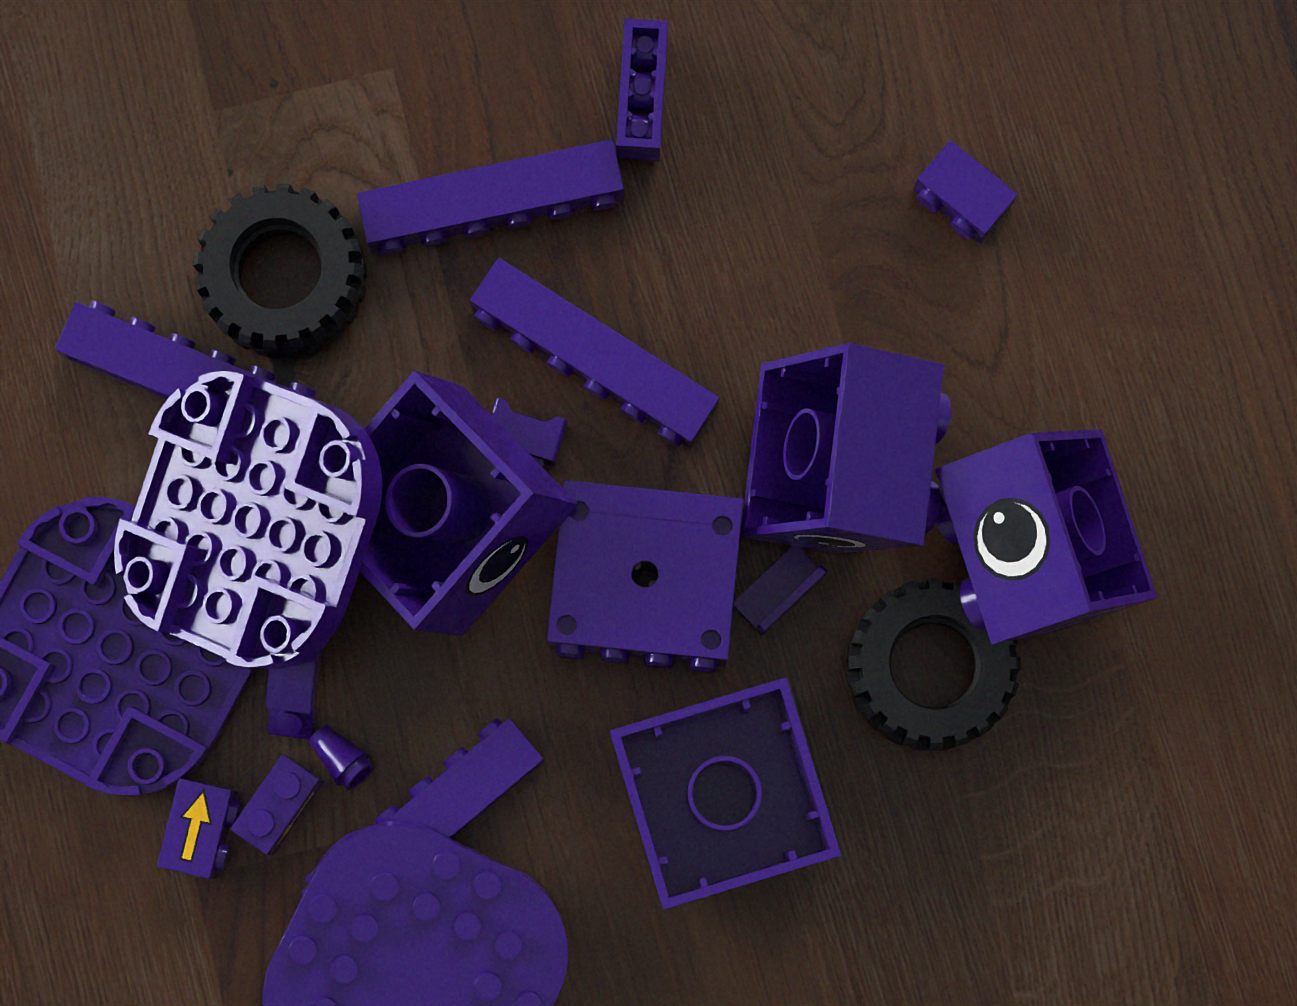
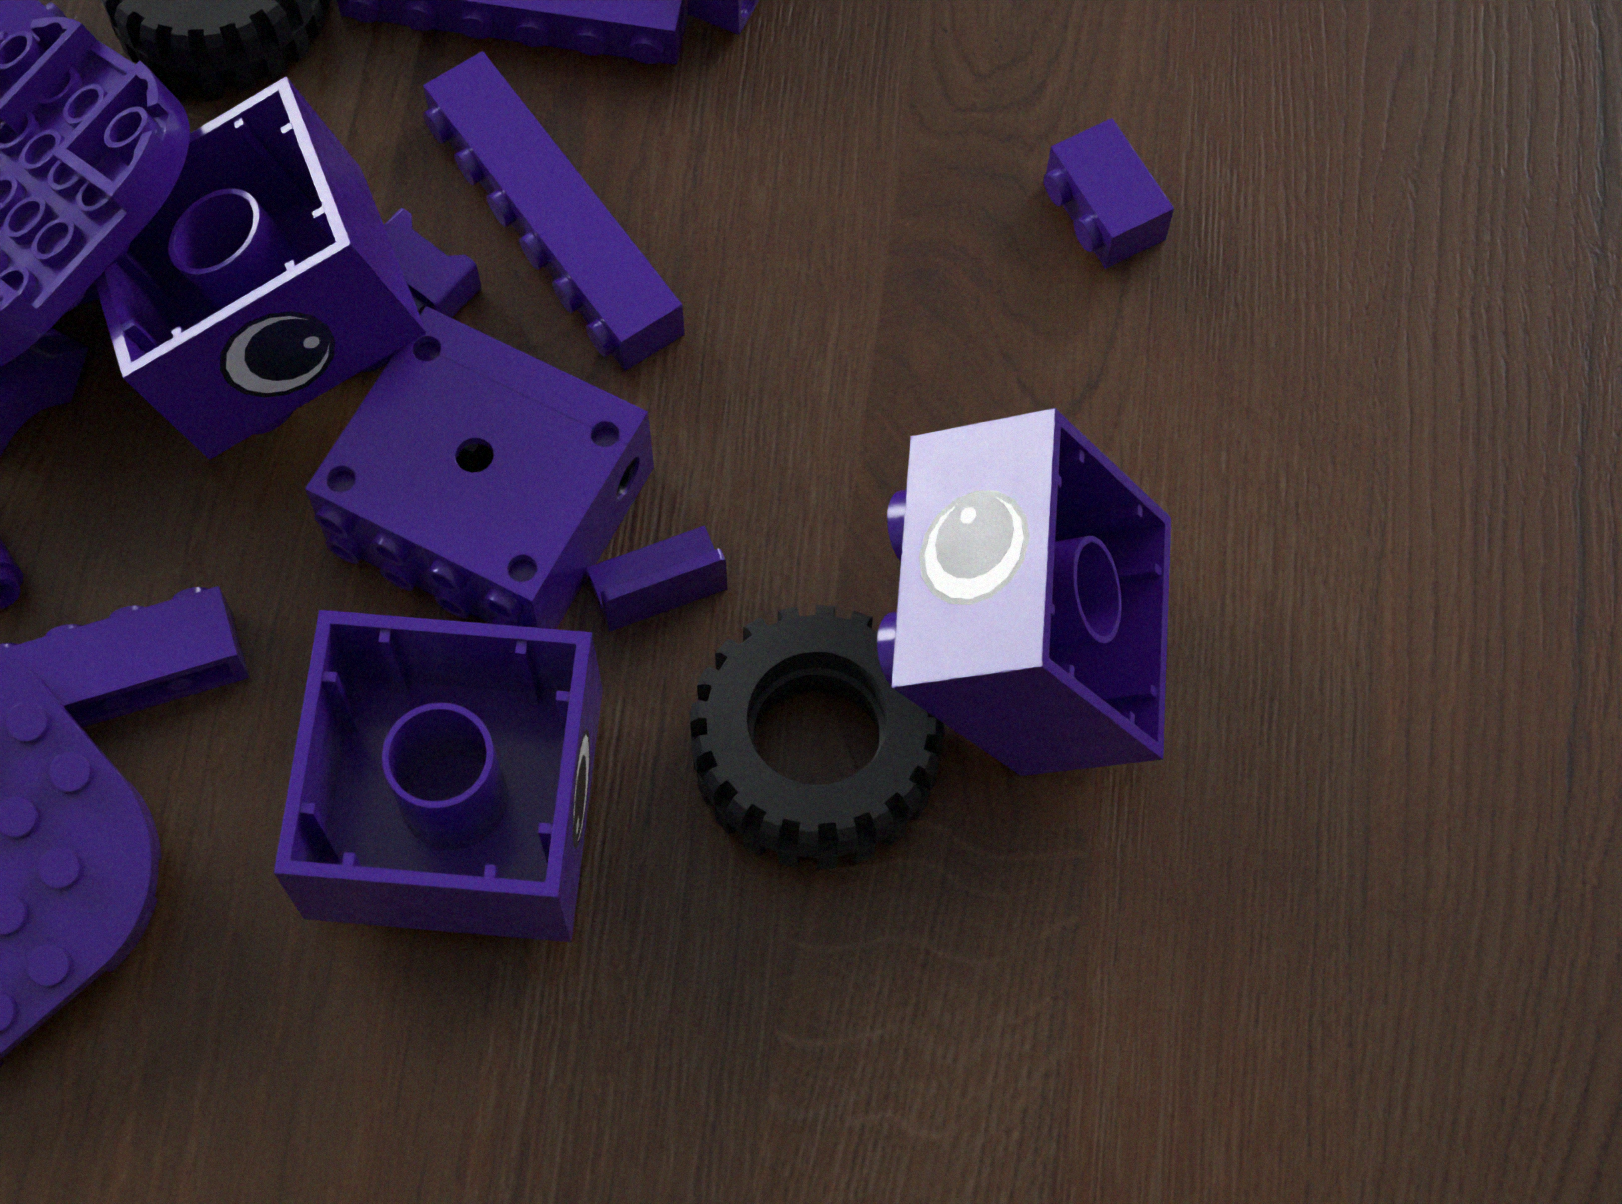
camera: 20 degrees right, 15 degrees down
(845, 451) = (811, 397): dark purple brick -> none

